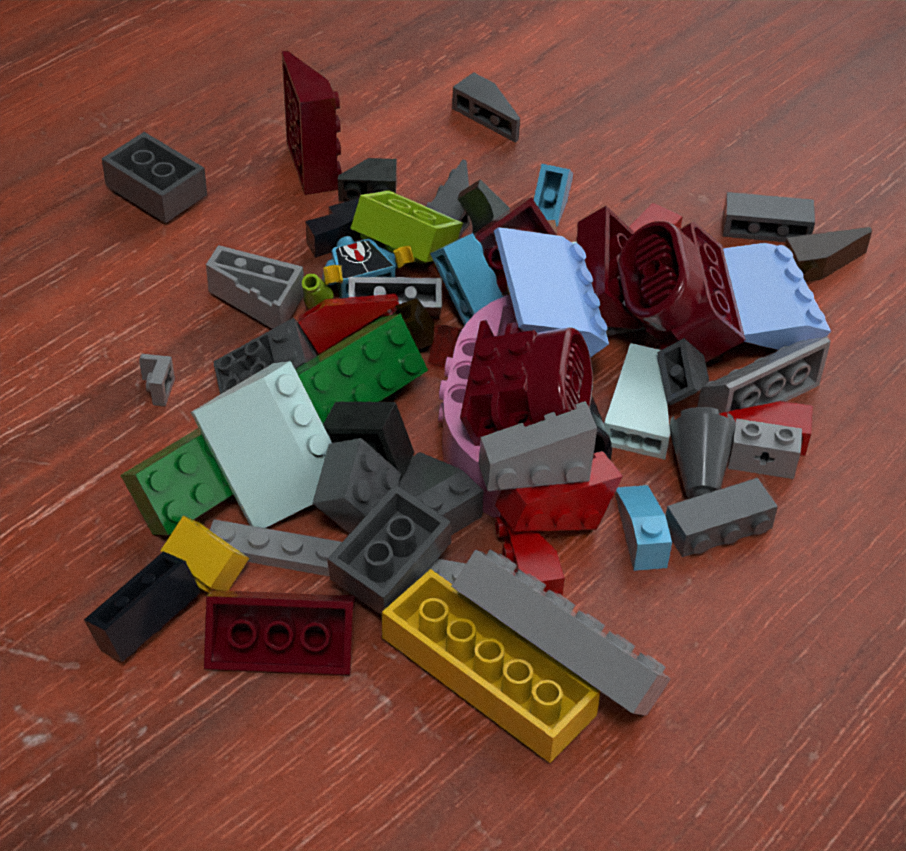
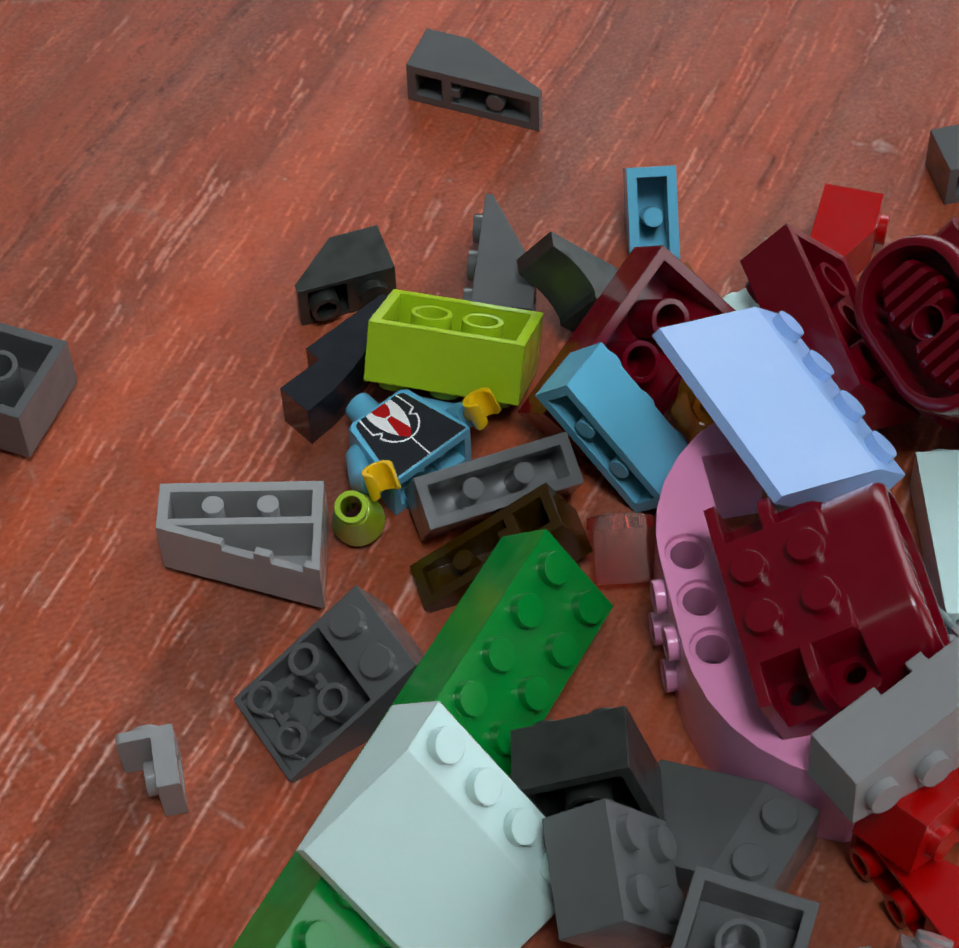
camera: 15 degrees left, 5 degrees up
(311, 125) = (218, 209): dark red slope -> none
(339, 317) = (428, 557): red slope -> none

